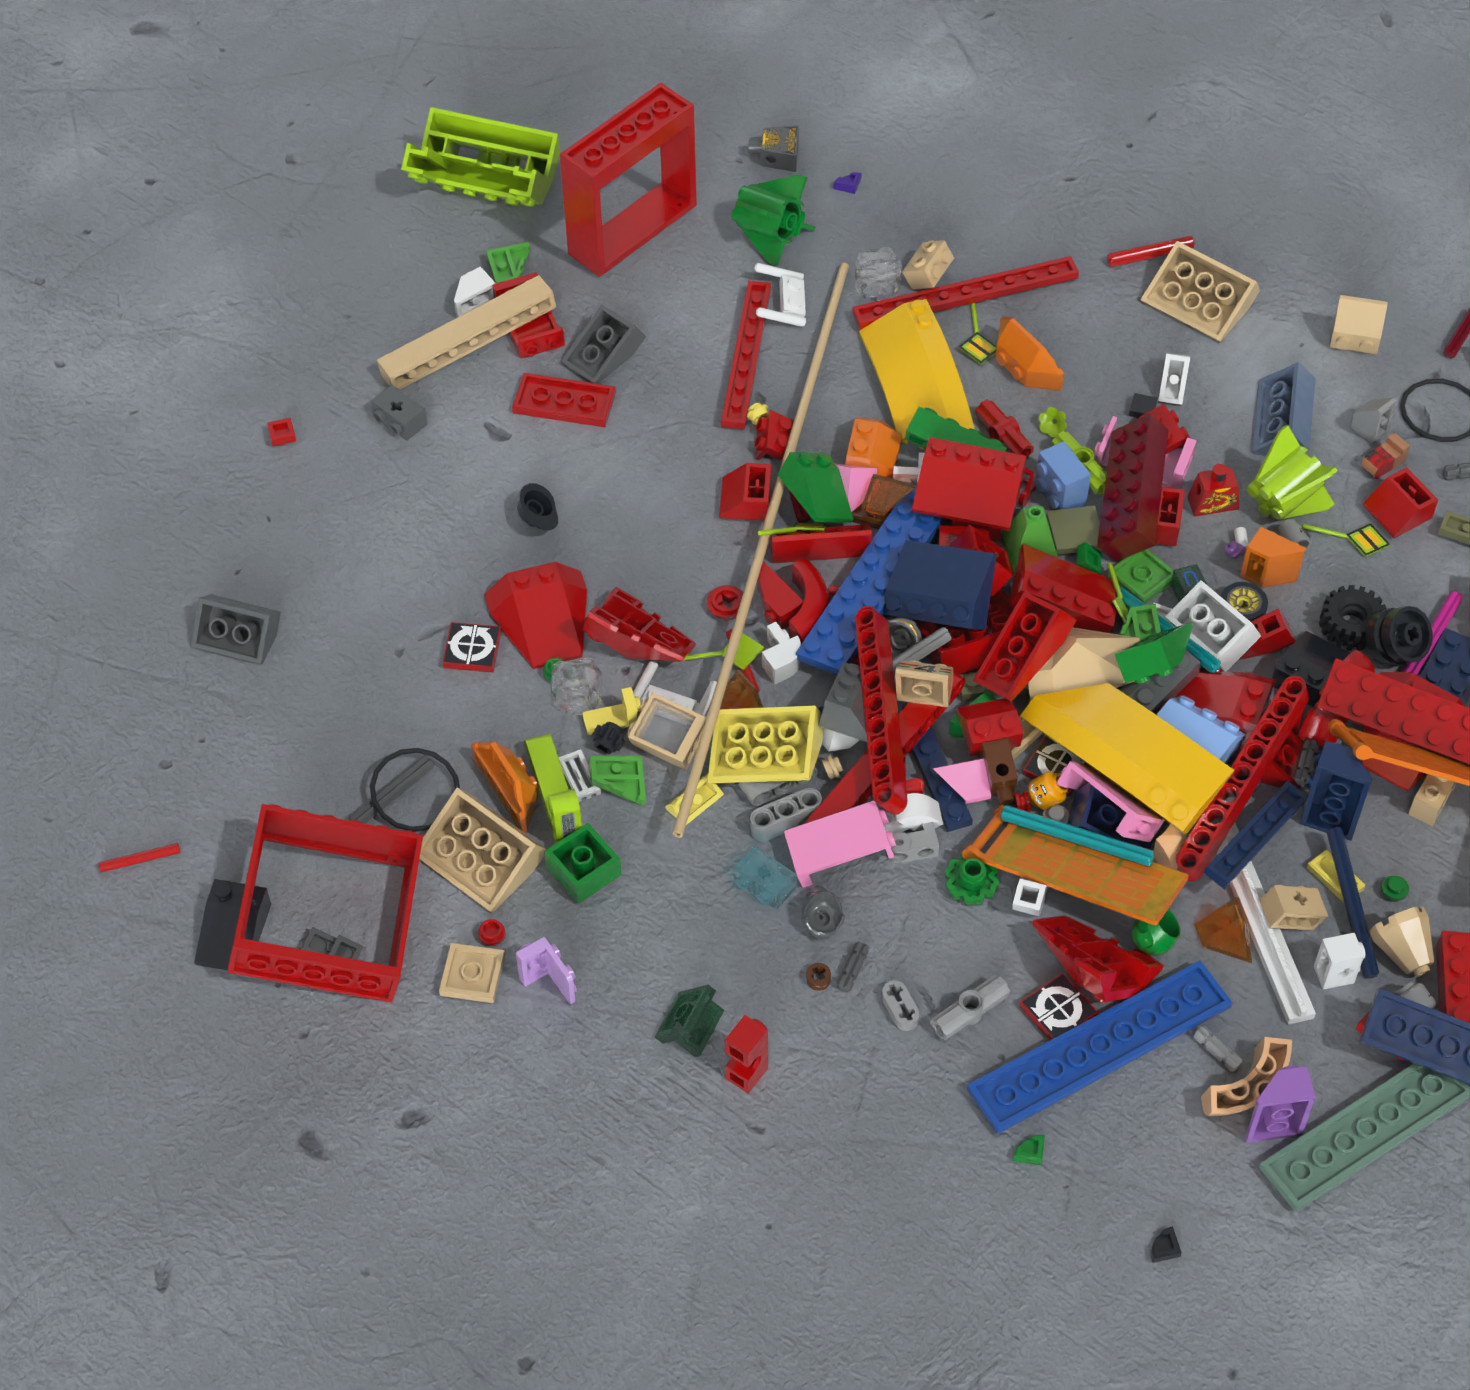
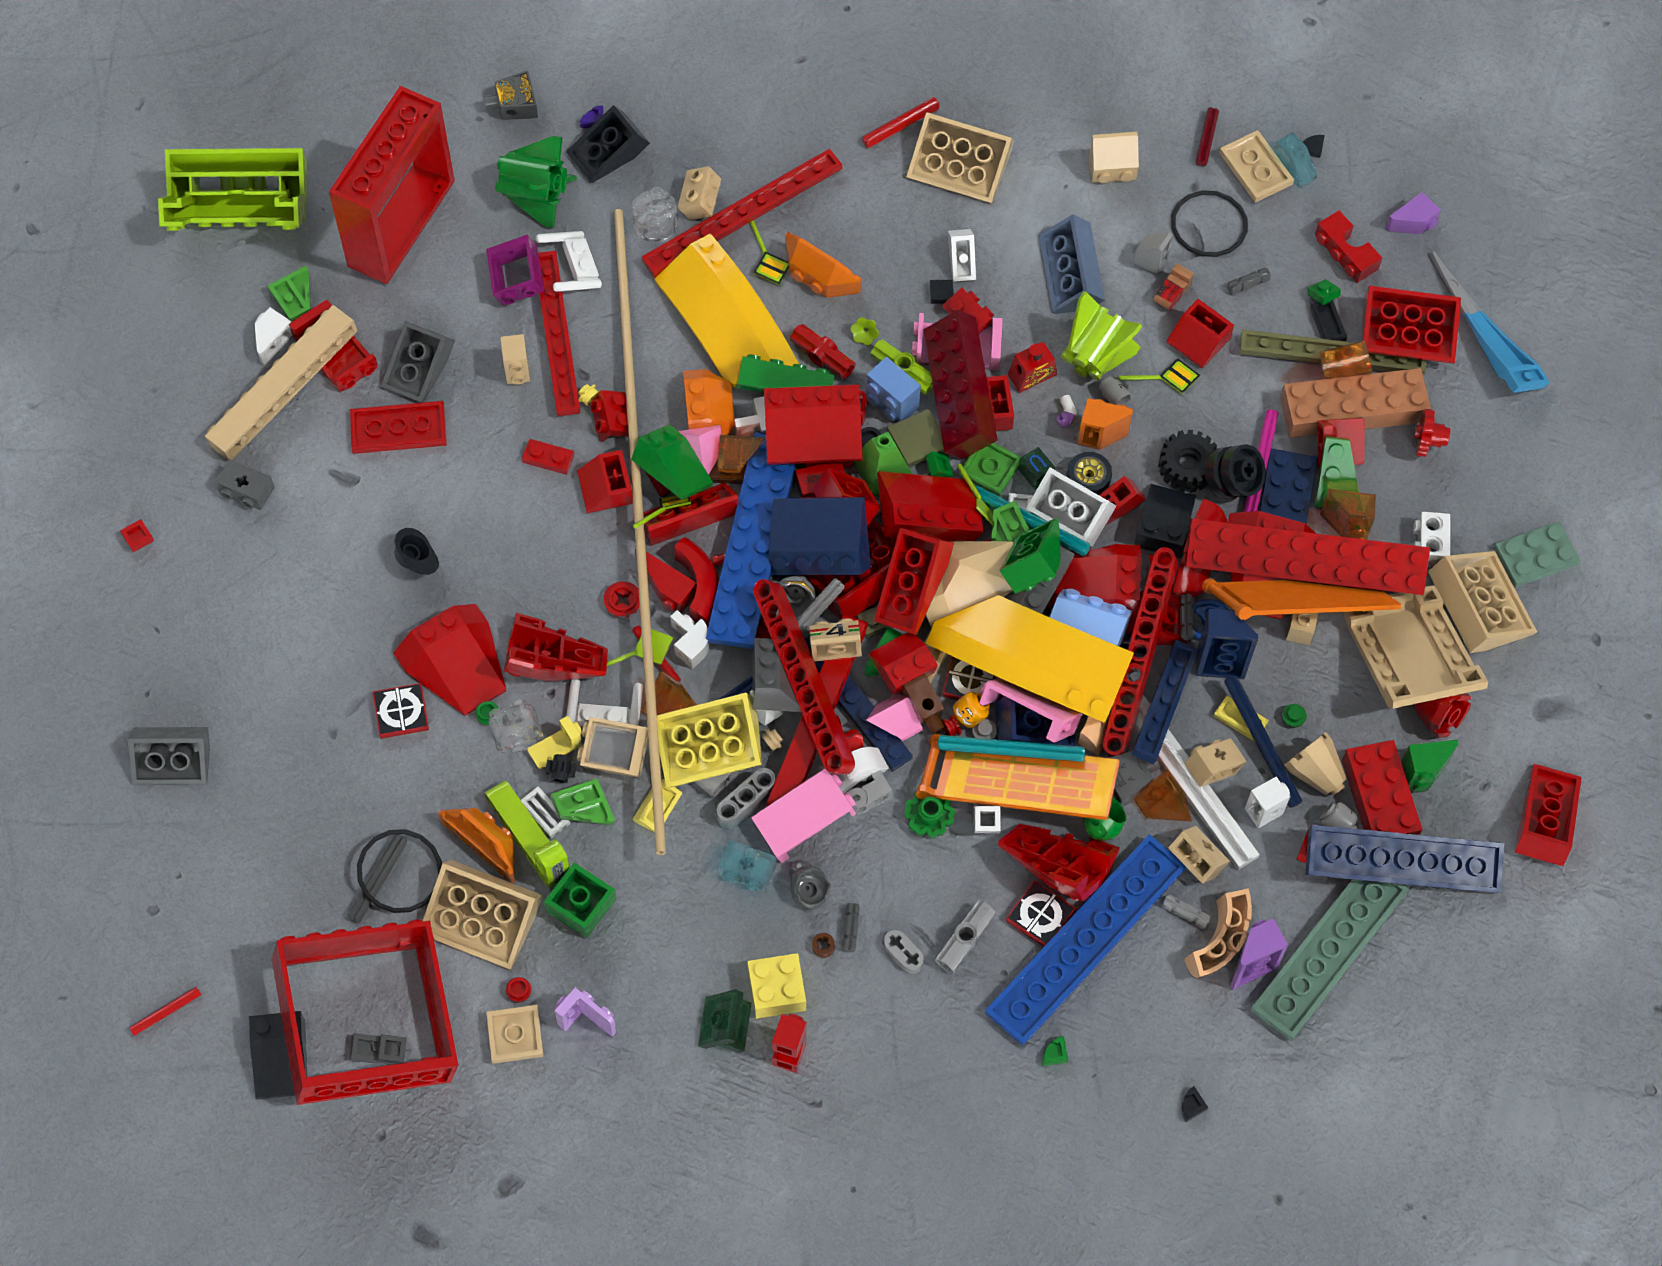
camera: 20 degrees left, 10 degrees up
(696, 363) = (515, 359): none -> tan brick
(699, 459) = (548, 456): none -> red plate
(714, 275) = (501, 255): none -> magenta window
(756, 994) = (776, 985): none -> light yellow brick
(854, 205) = (607, 145): none -> black slope
(1198, 900) = (1132, 777): none -> dark grey torso
(1248, 993) = (1199, 854): none -> tan brick

